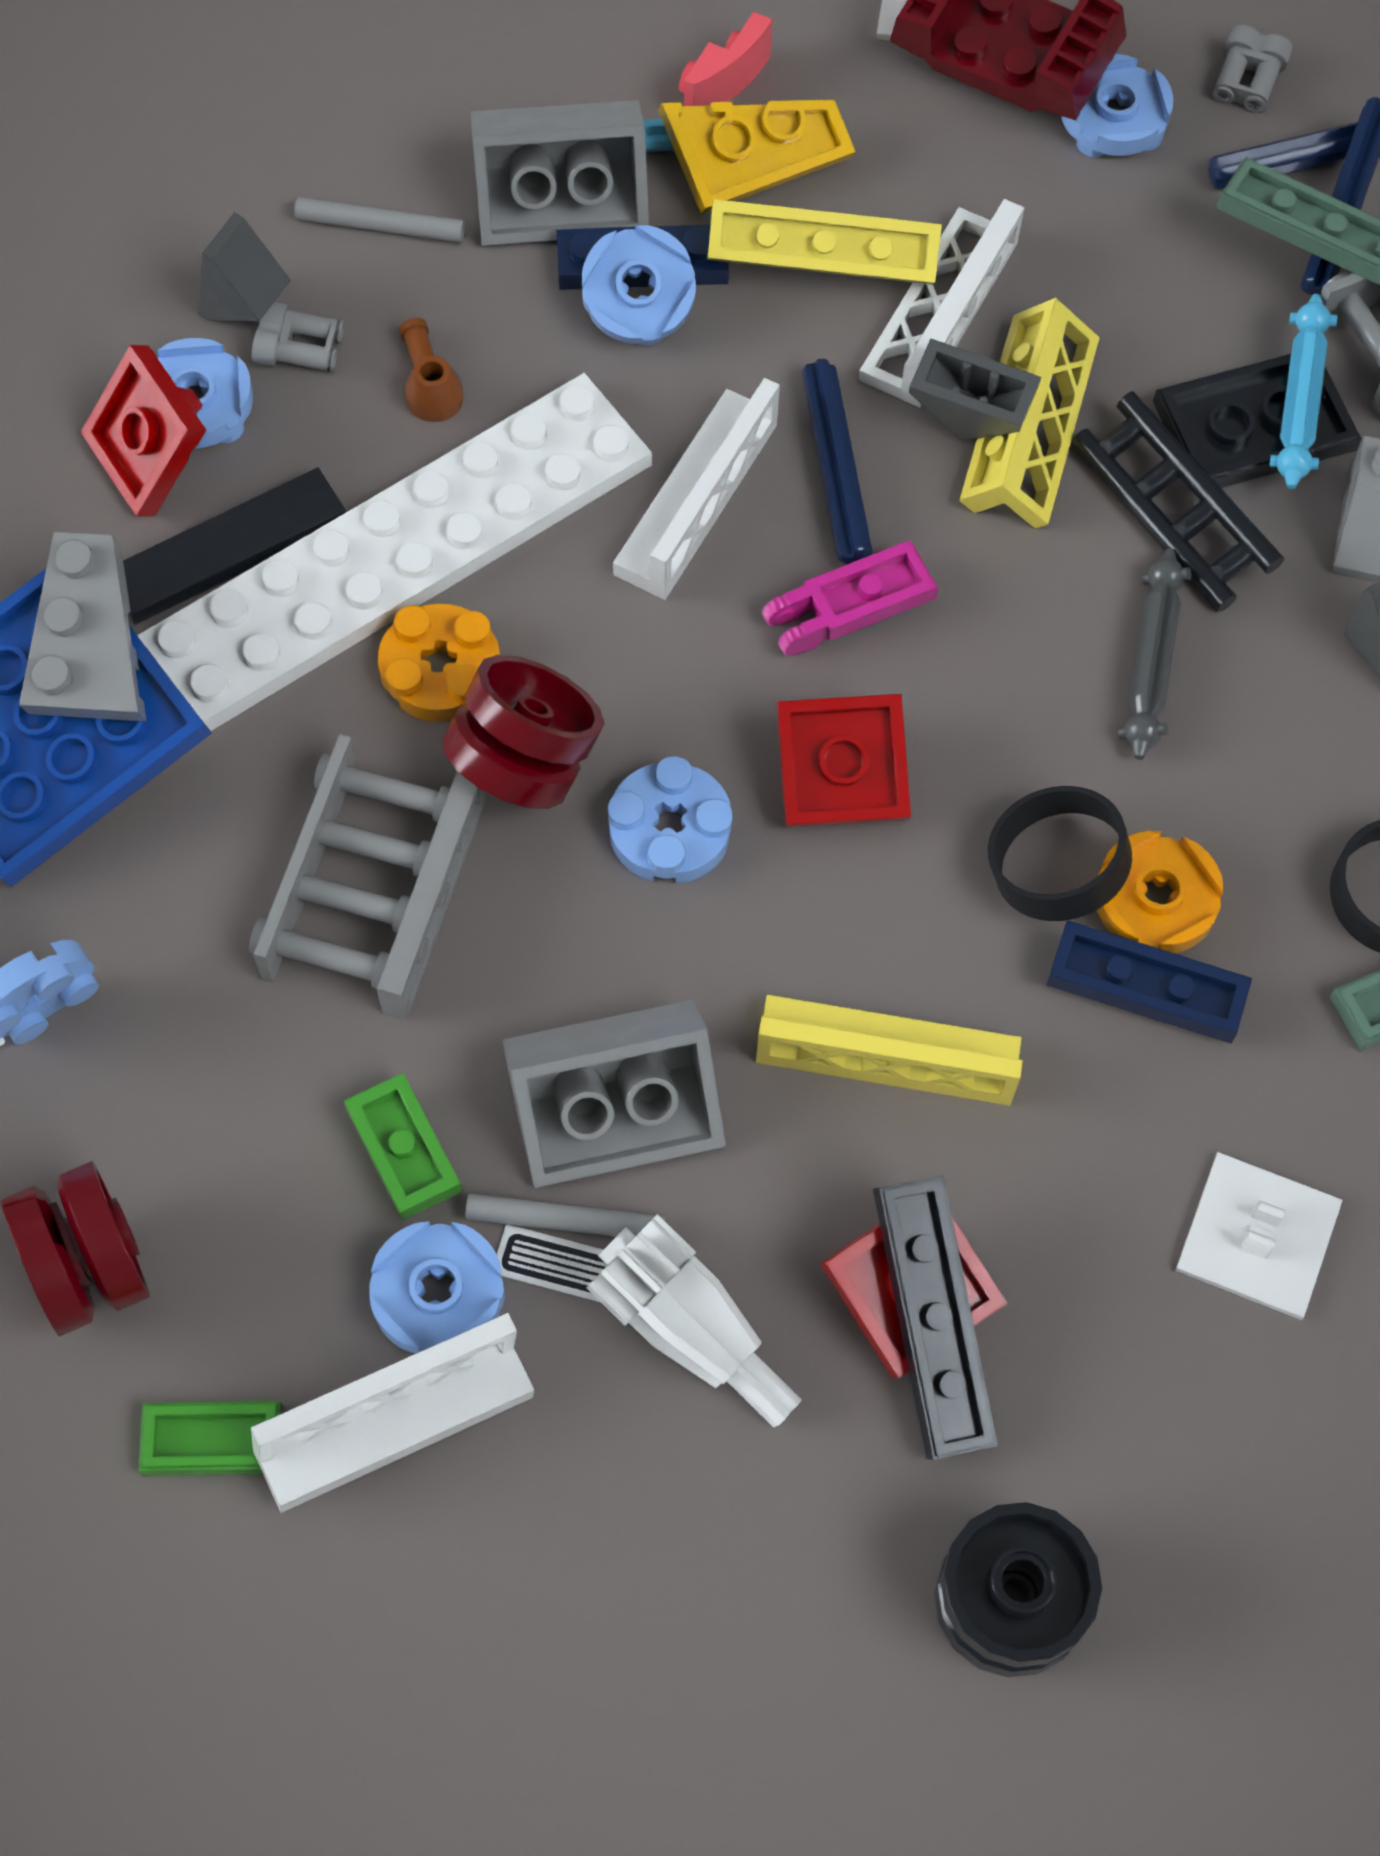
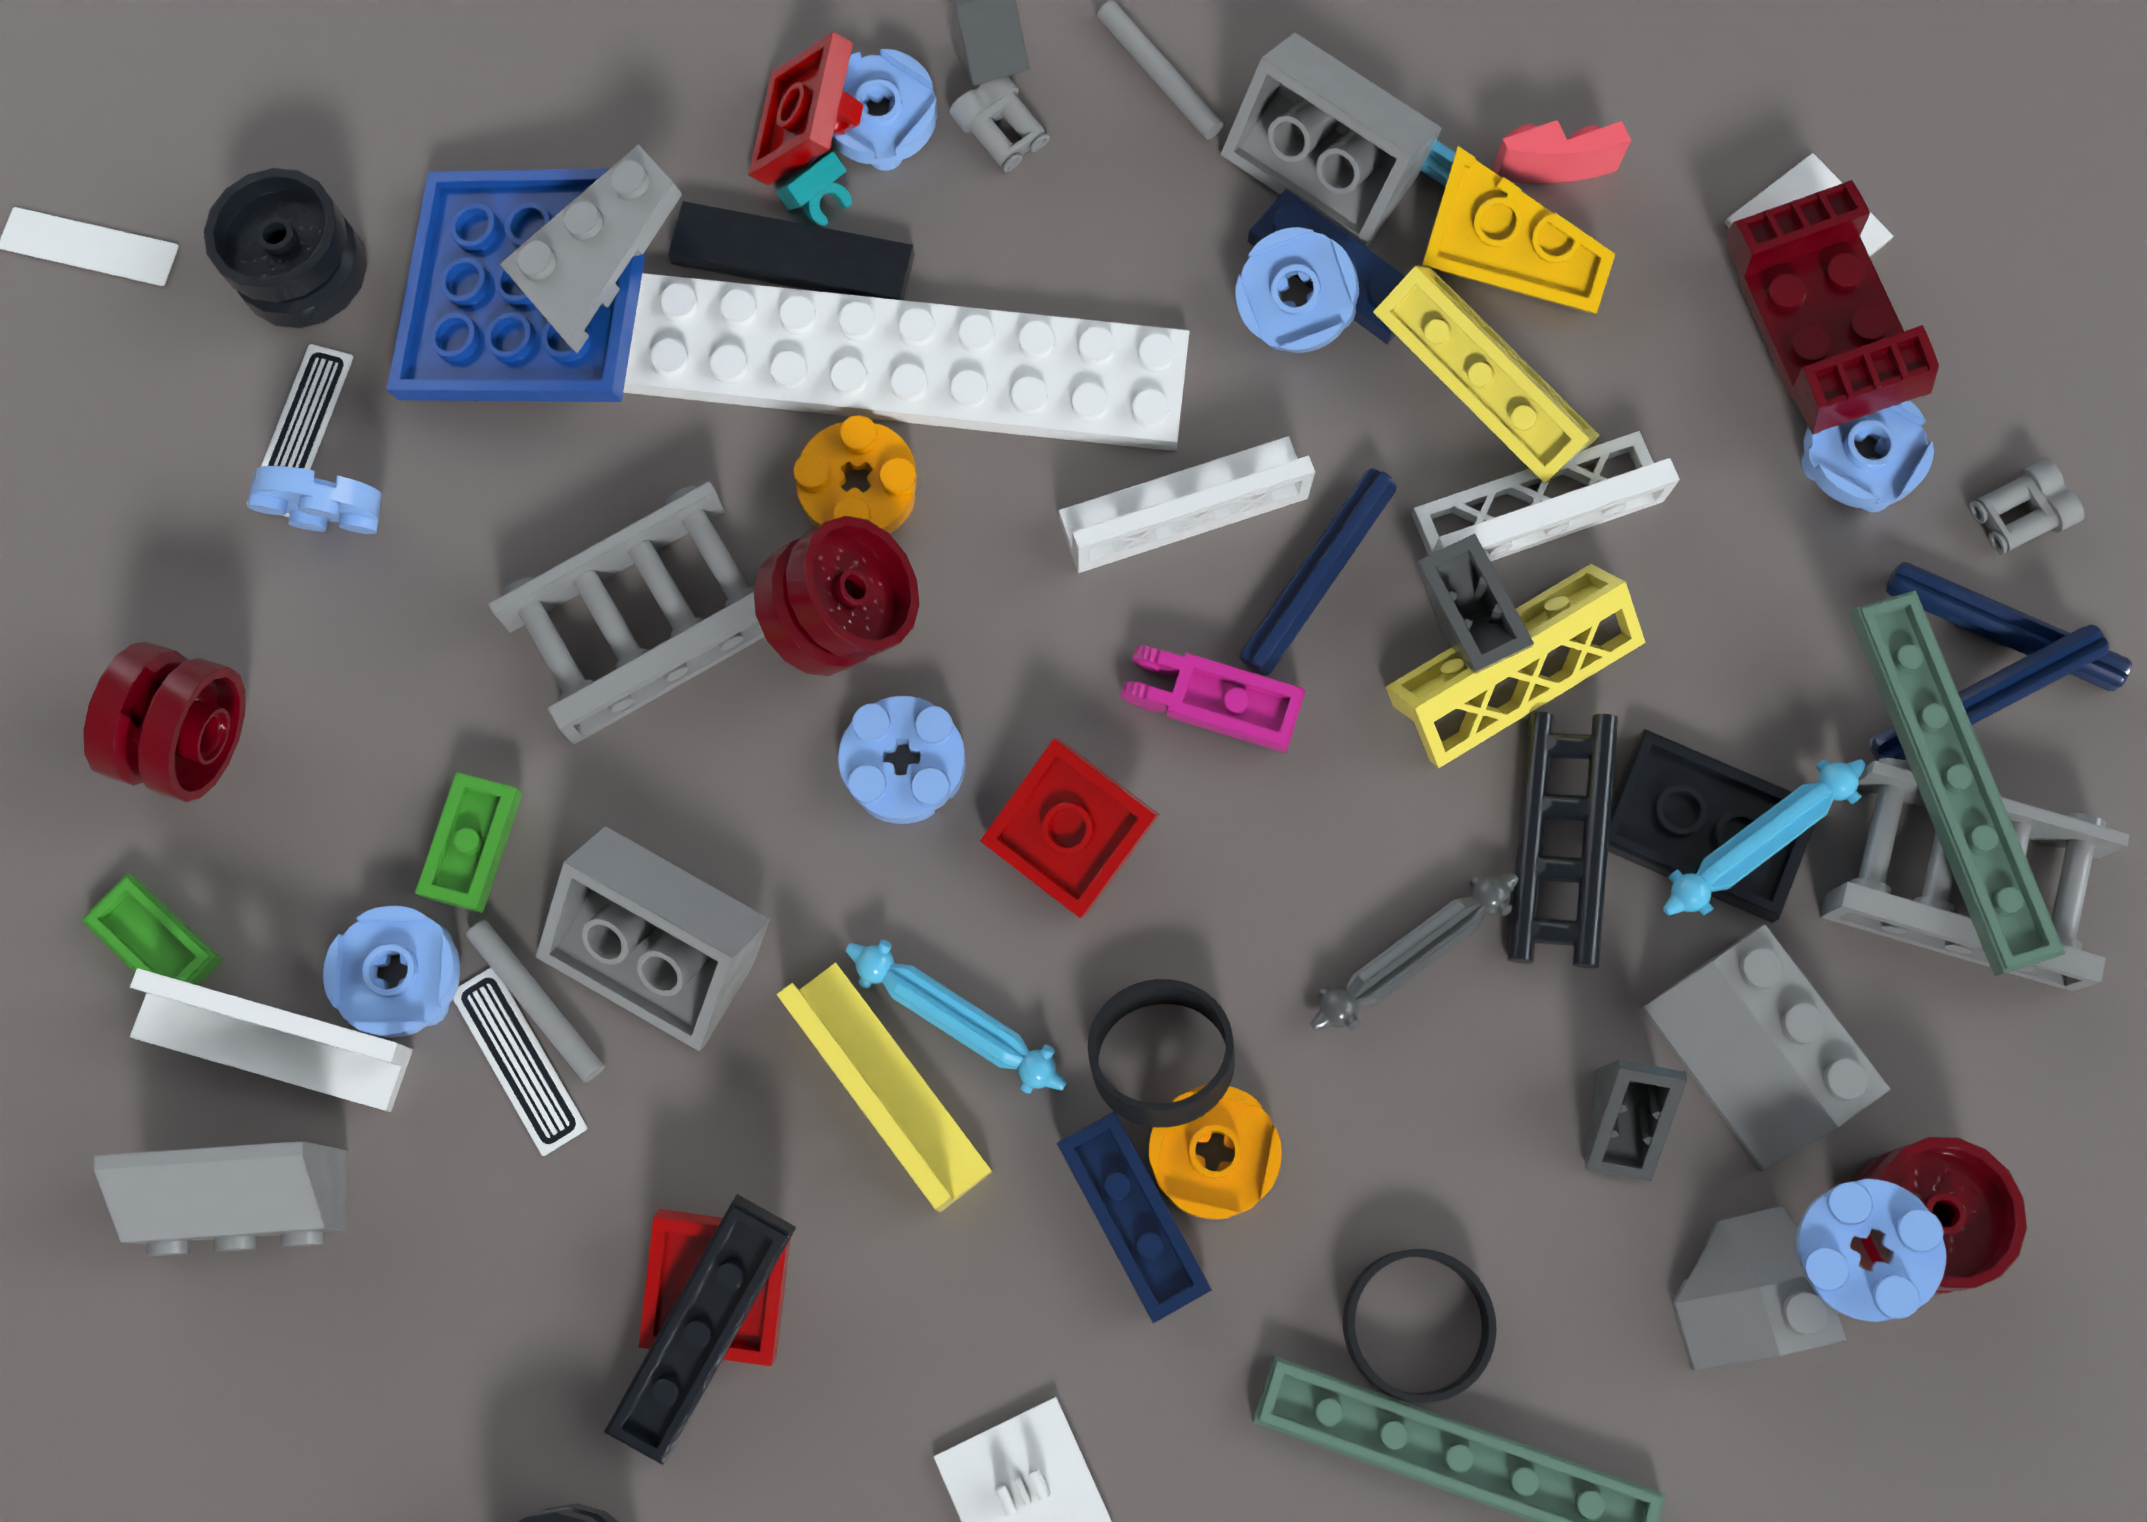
camera: 45 degrees right, 10 degrees up
(198, 483) = (811, 184): none -> teal tile
(429, 399) = (1072, 261): dark orange bar -> none
(479, 1546) = (225, 1195): none -> light grey slope
(687, 1315) = (531, 1158): white piece -> none
(888, 959) = (956, 1016): none -> medium azure wheel

